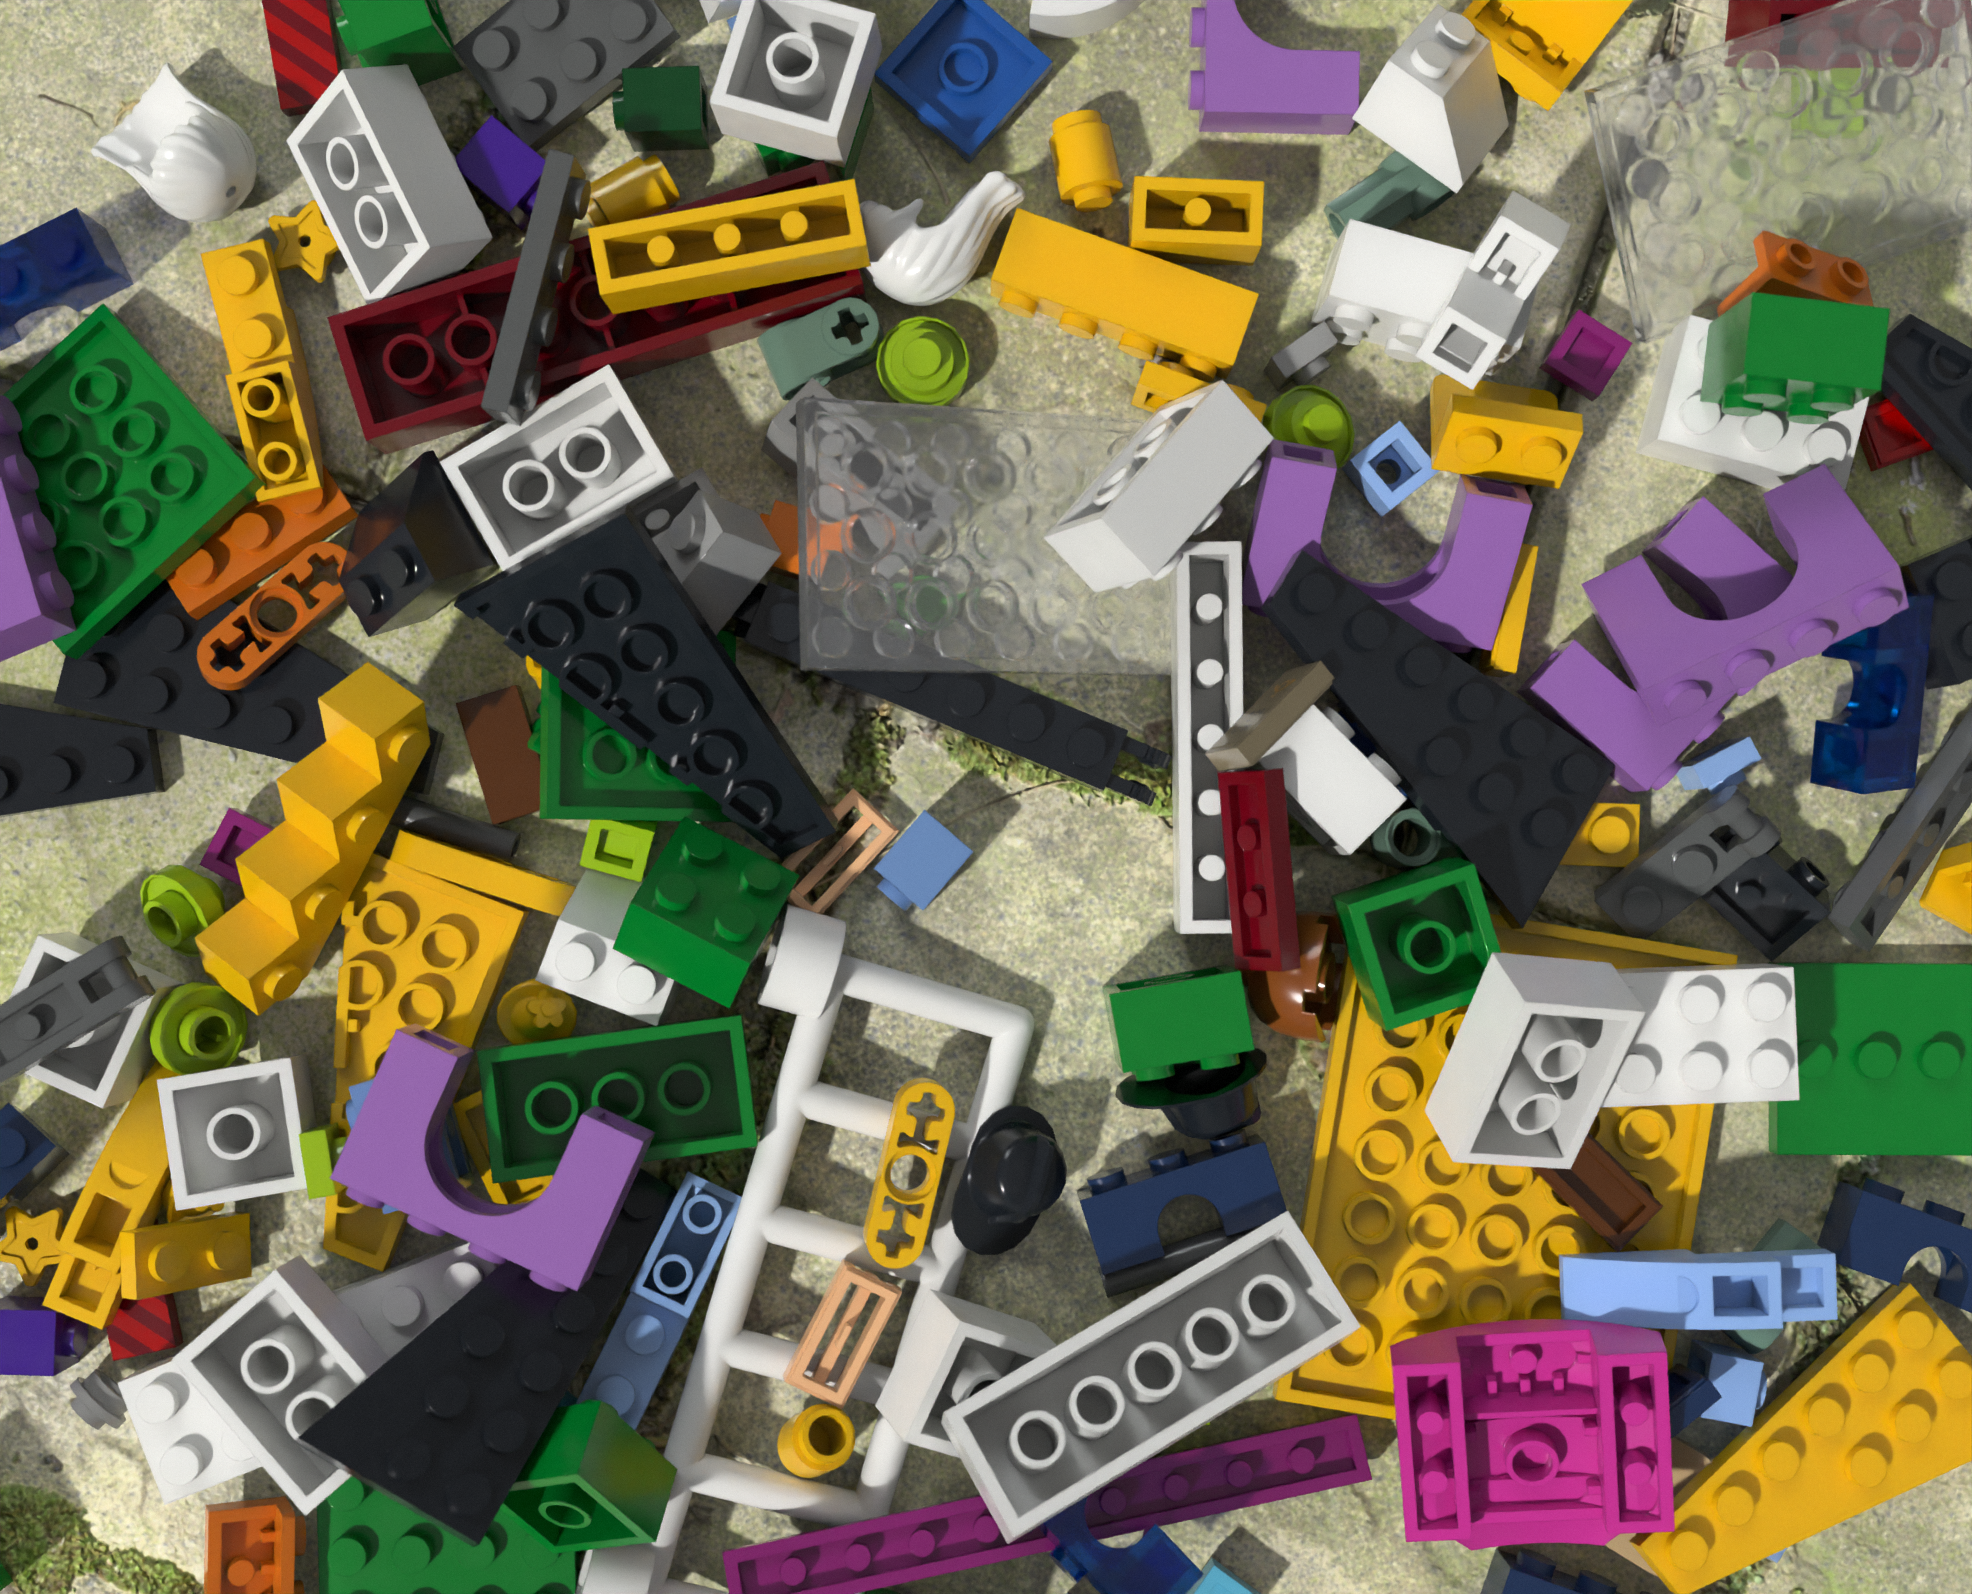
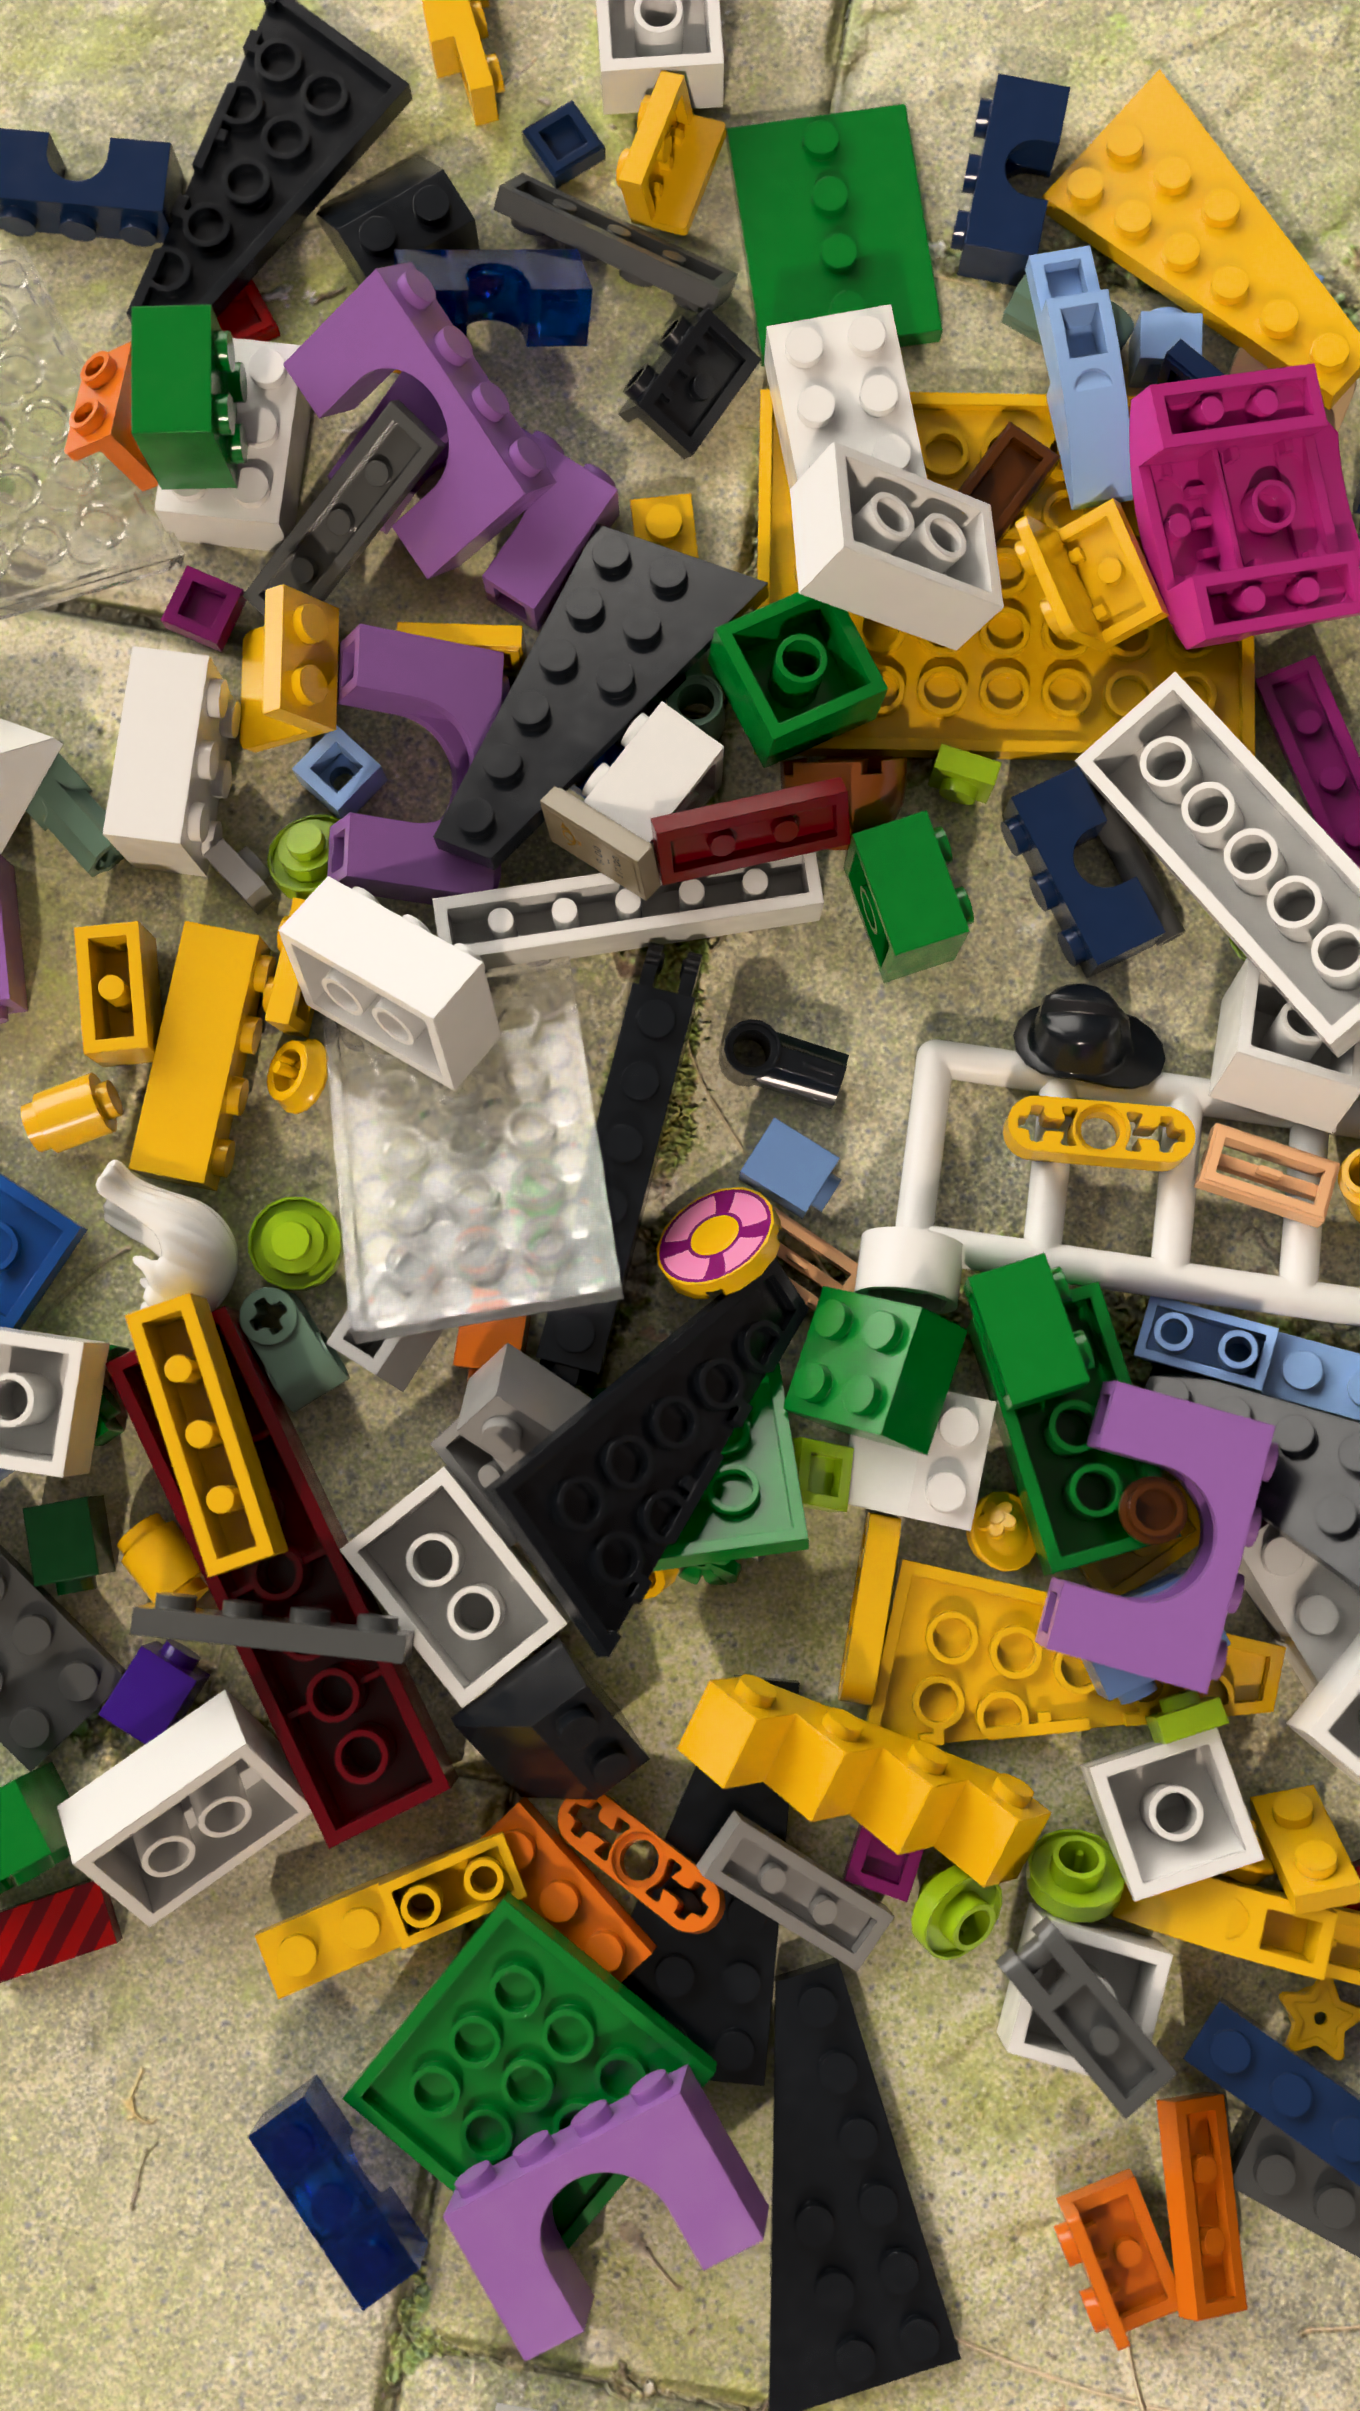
camera: 95 degrees left, 5 degrees down
(183, 152) = (173, 2038): white piece -> none
(224, 757) = (795, 1890): none -> light grey plate
(291, 230) = (242, 1913): yellow plate -> none
(456, 829) = (829, 1642): dark grey piece -> none
(498, 738) = (743, 1610): reddish brown tile -> none
(519, 1158) = (1153, 1510): none -> reddish brown plate
(712, 1066) = (1028, 1331): none -> green brick
(858, 779) = (719, 1242): none -> tile
(1027, 877) = (789, 1066): none -> black piece
(1090, 387) = (298, 1074): none -> yellow hat
(1199, 1100) = (981, 864): black piece -> none
(1298, 1098) = (963, 775): none -> lime plate
(1481, 1259) = (1091, 577): none -> yellow bracket
(1492, 290) = (164, 689): white brick -> none
(1660, 512) = (351, 507): none -> dark grey plate
(1685, 864) = (681, 445): dark grey plate -> none
(1719, 766) = (582, 430): light blue plate -> none

